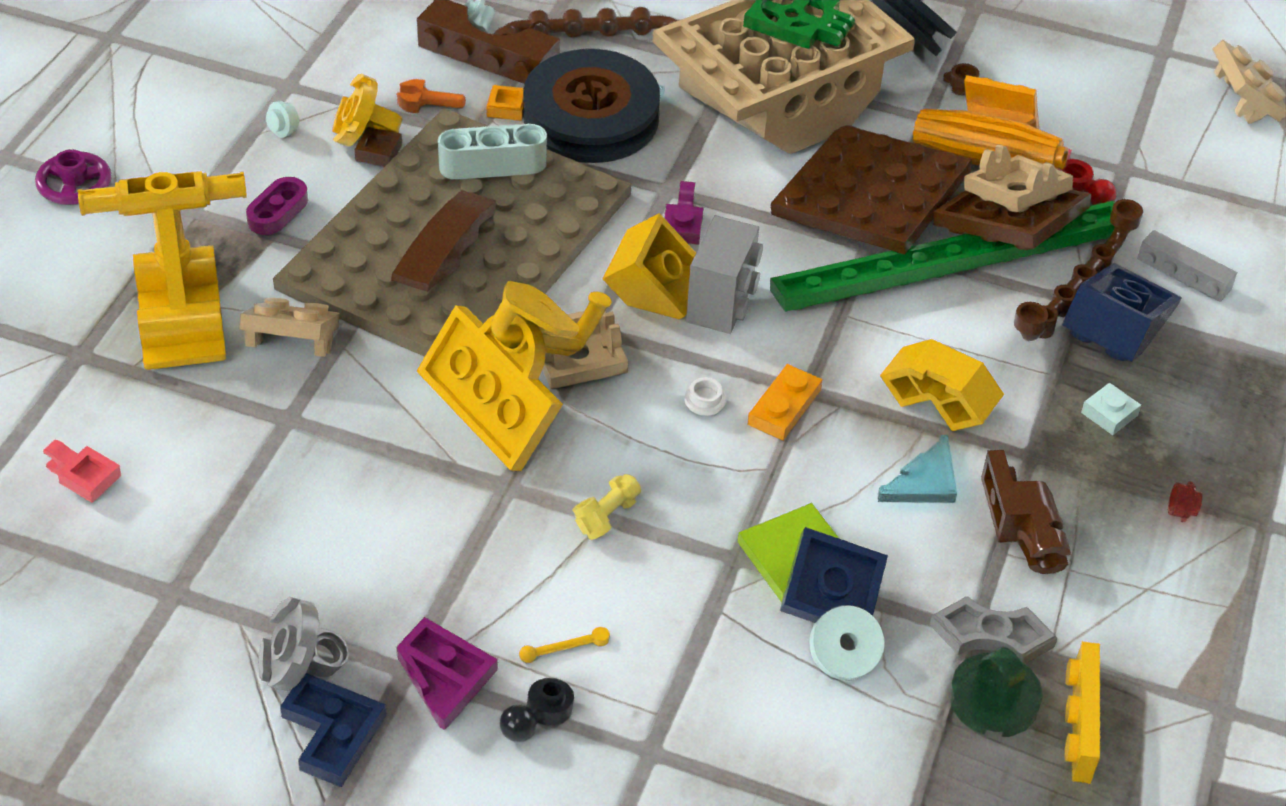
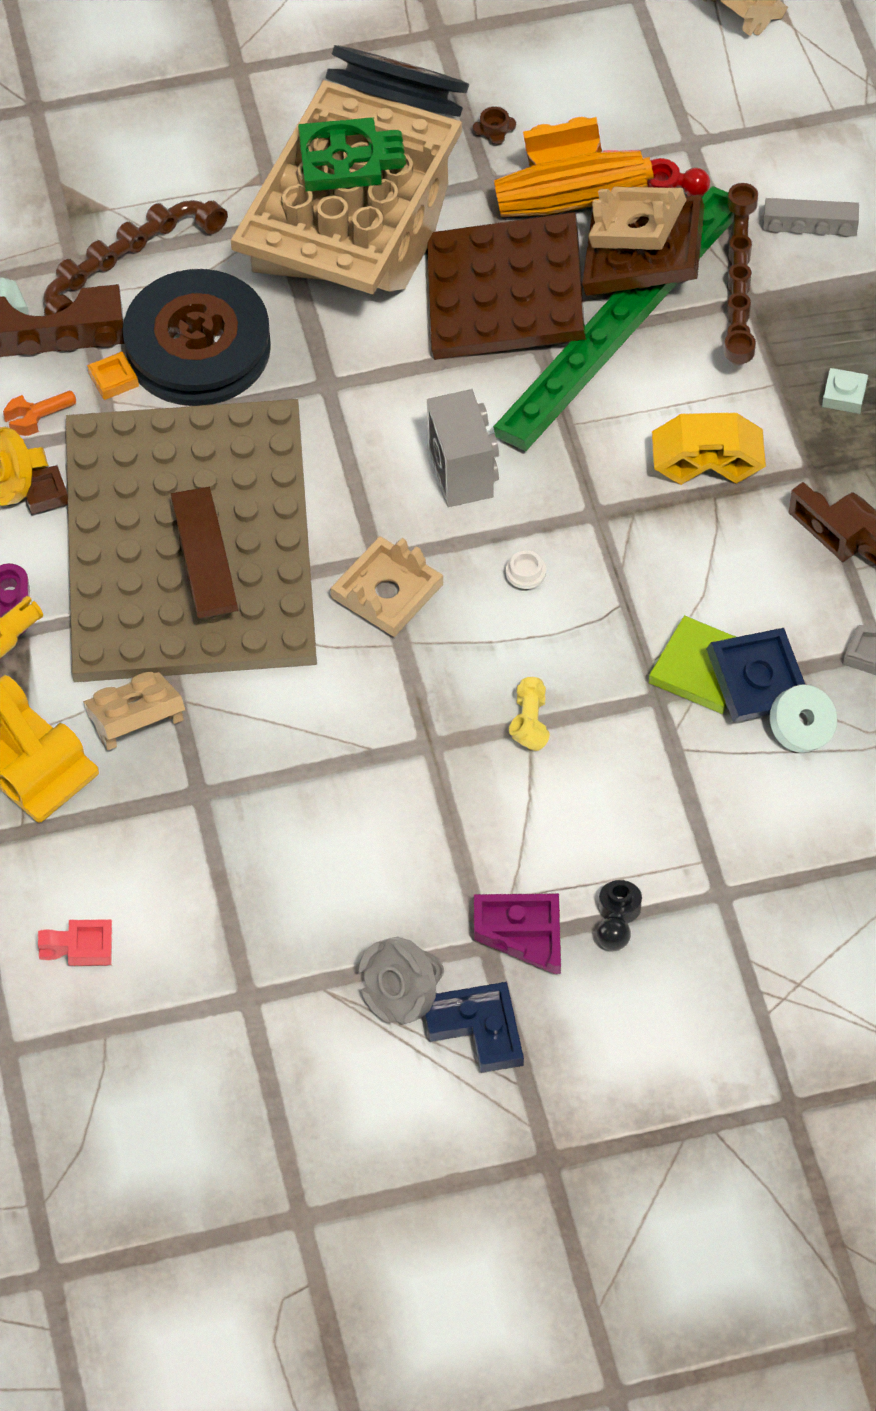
camera: 30 degrees left, 10 degrees up
(492, 151) = (165, 439): light aqua beam -> none
(495, 367) = (359, 659): yellow plate -> none
(599, 637) = (609, 828): yellow hinge -> none
(652, 268) = (390, 473): yellow slope -> none
(684, 217) = (367, 410): magenta plate -> none
(785, 402) = (590, 535): light orange plate -> none
(924, 479) = (750, 539): clear light blue tile -> none
(1119, 312) = (793, 293): dark blue slope -> none

